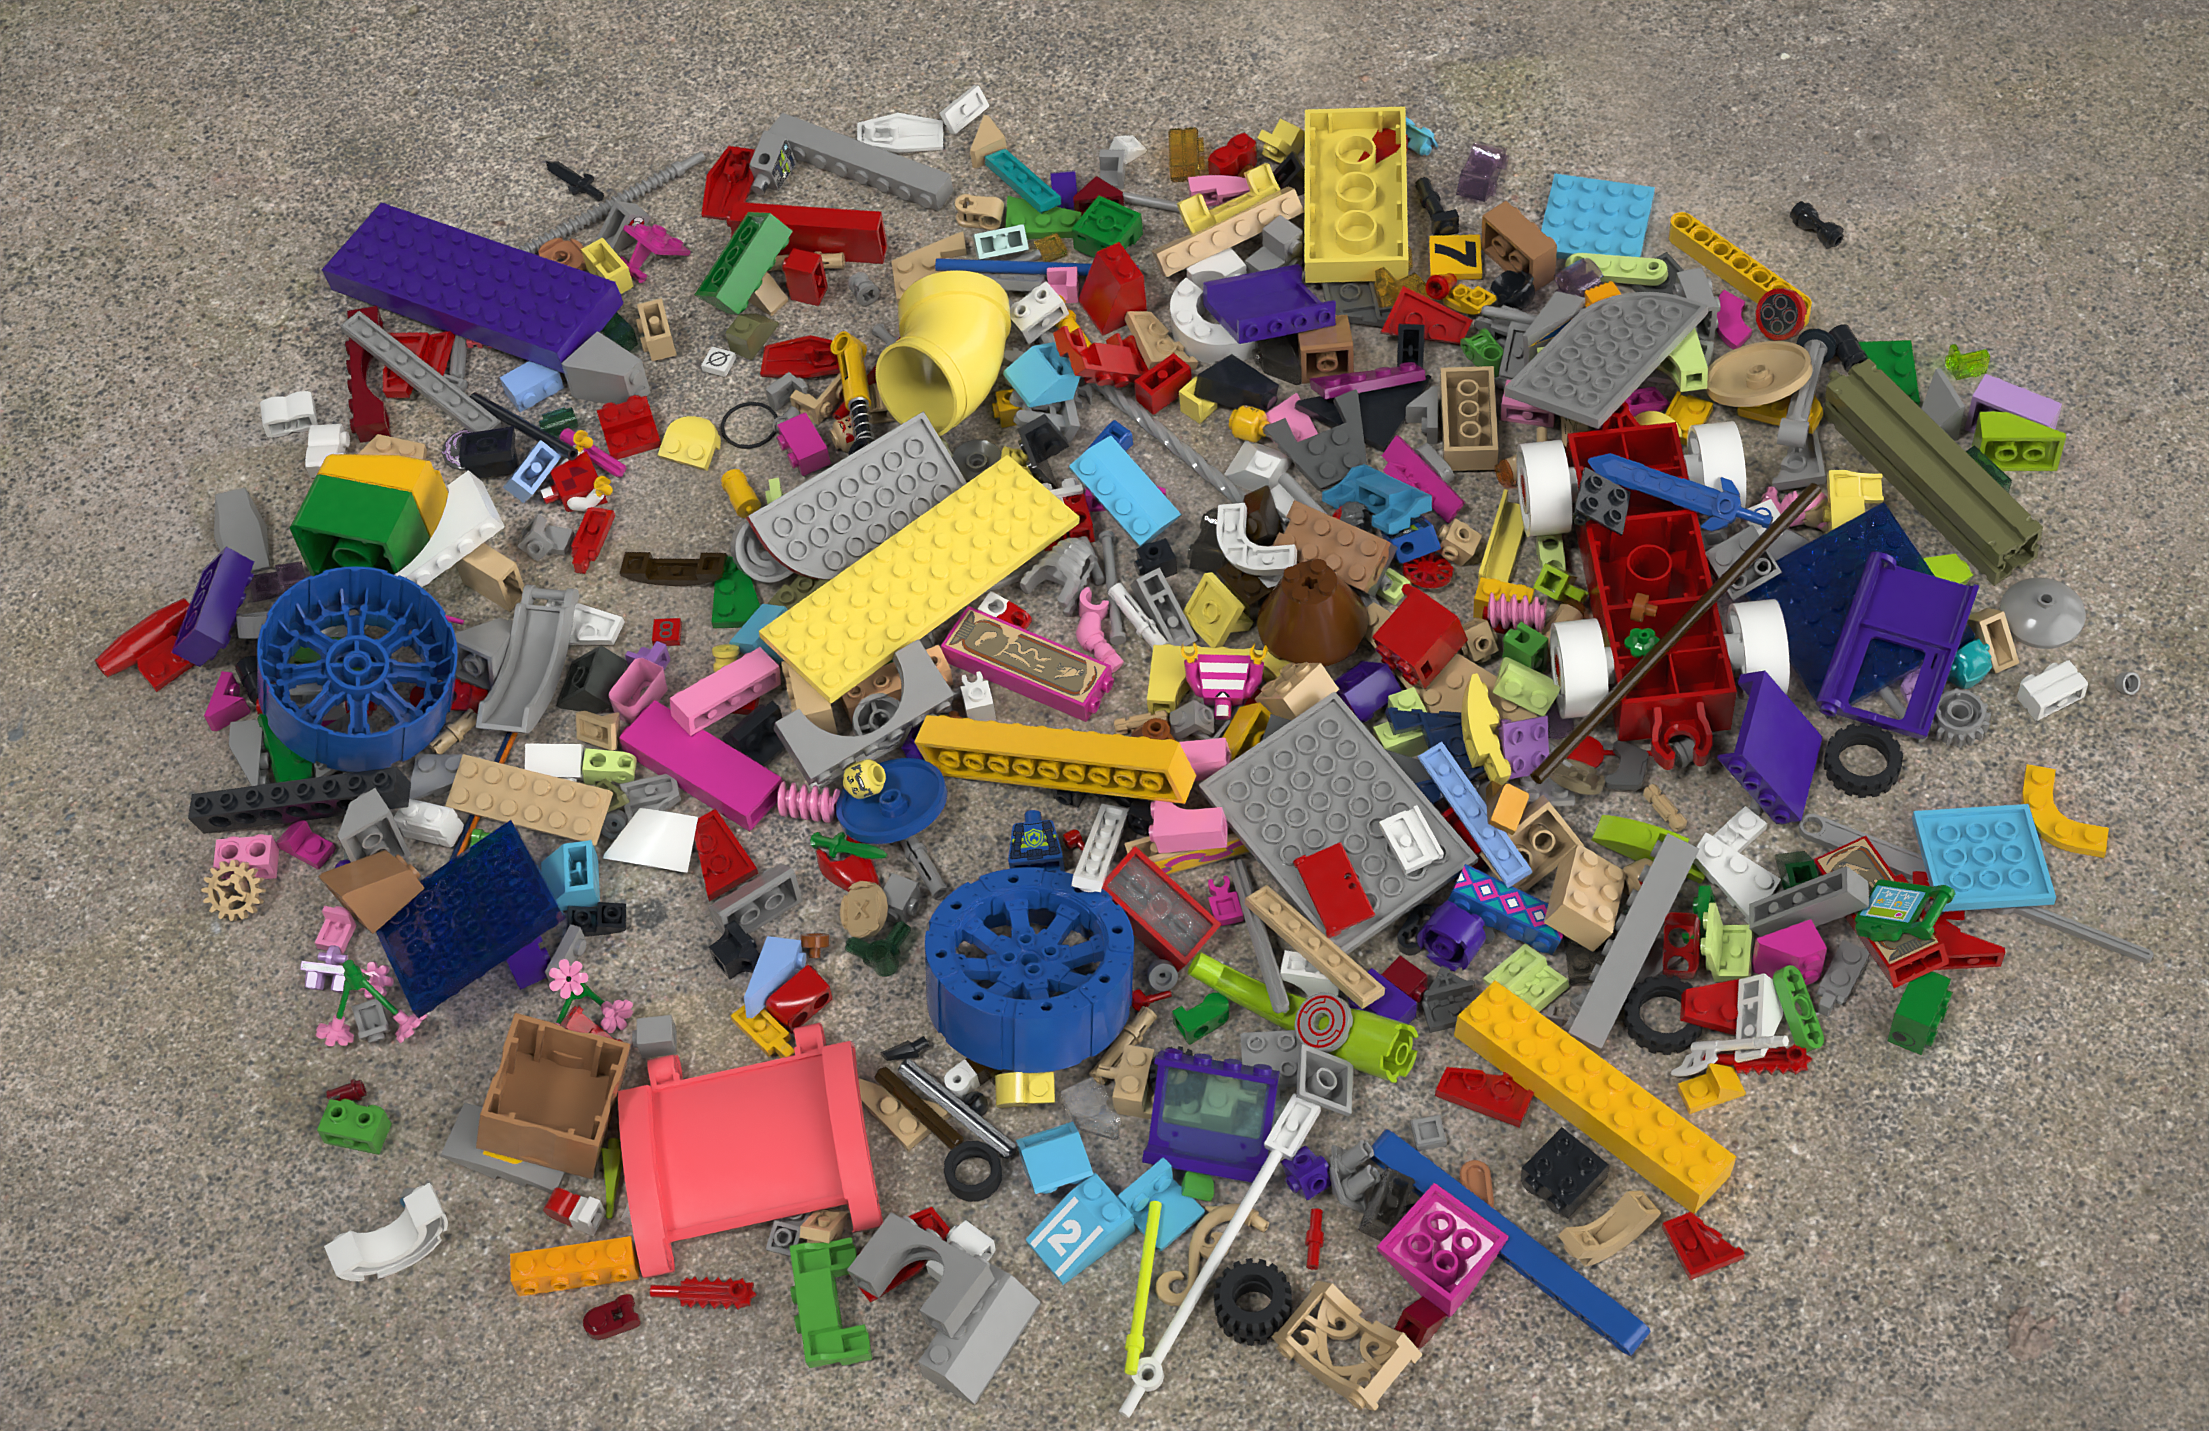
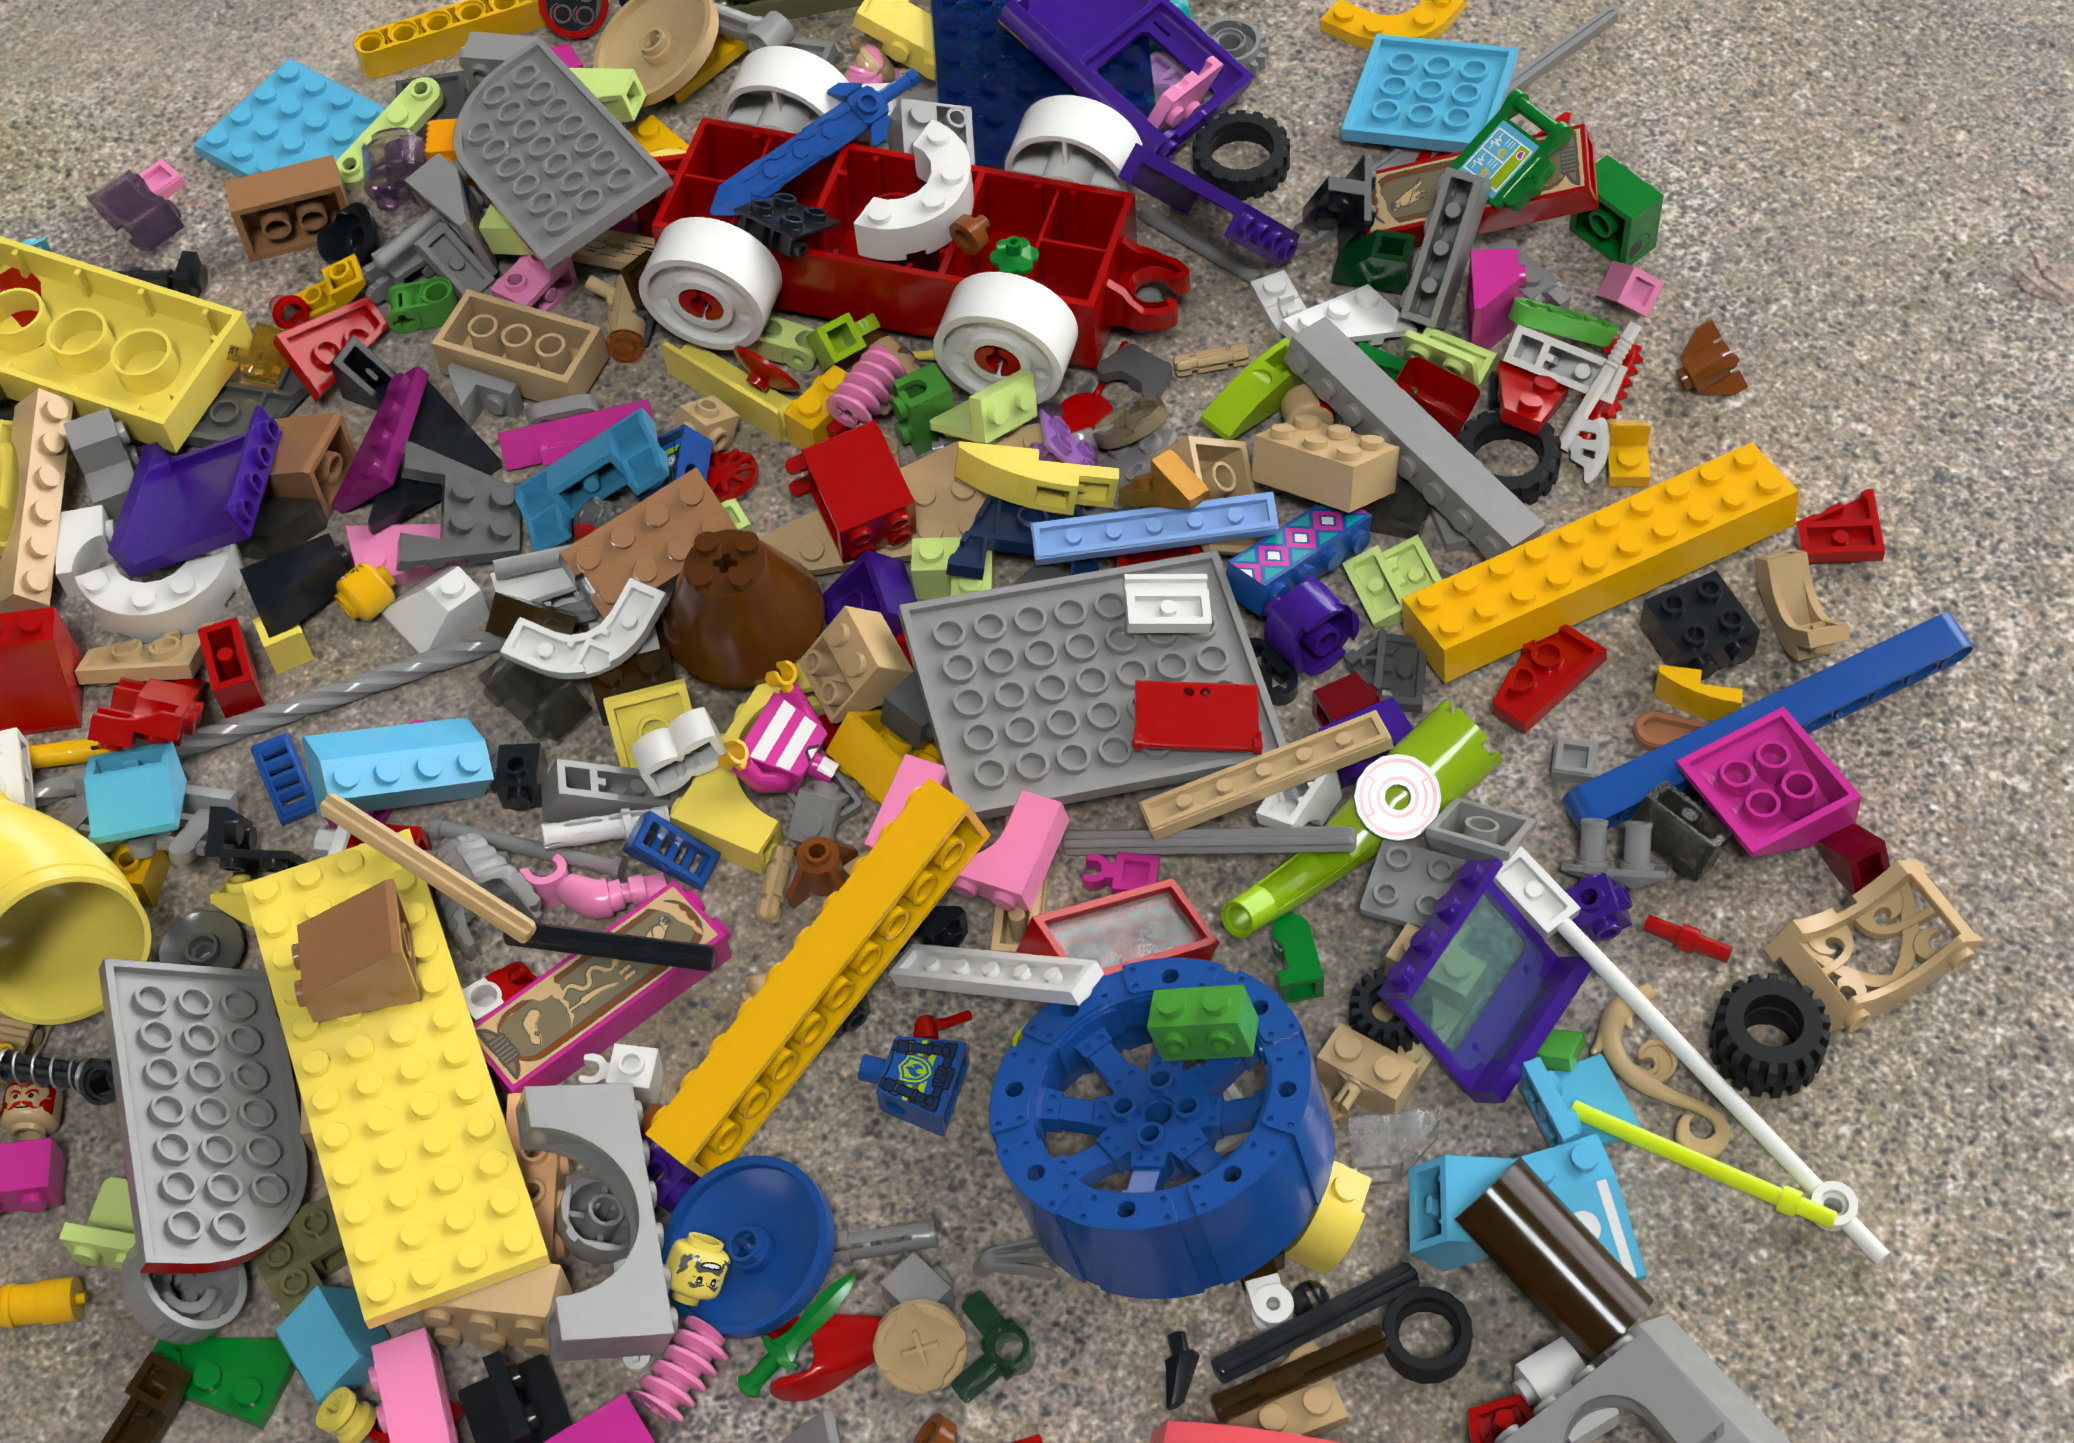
camera: 70 degrees left, 0 degrees up
(969, 526) = (357, 956): none -> medium nougat slope
(1033, 1212) = (1555, 1260): none -> dark brown brick
(1049, 535) = (428, 868): none -> tan axle
(1049, 650) = (619, 946): none -> black axle
(1074, 948) = (1203, 1022): none -> bright green brick
(1126, 637) = (650, 856): none -> blue slope
(1196, 625) = (677, 753): none -> white brick
(1456, 255) = (248, 285): yellow tile -> none
(1511, 1186) = (1683, 691): none -> yellow slope
(1516, 555) = (763, 372): none -> red dish
(1518, 171) = (163, 179): none -> bright pink tile
(1662, 581) = (921, 220): none -> white brick
(1682, 626) = (1029, 225): dark brown piece -> none
(1809, 1115) = (1708, 365): none -> dark orange brick
(1828, 835) = (1345, 203): none -> black bracket
(1861, 1046) = (1630, 288): none -> bright pink panel
(1877, 699) = (1184, 97): none -> bright pink wing

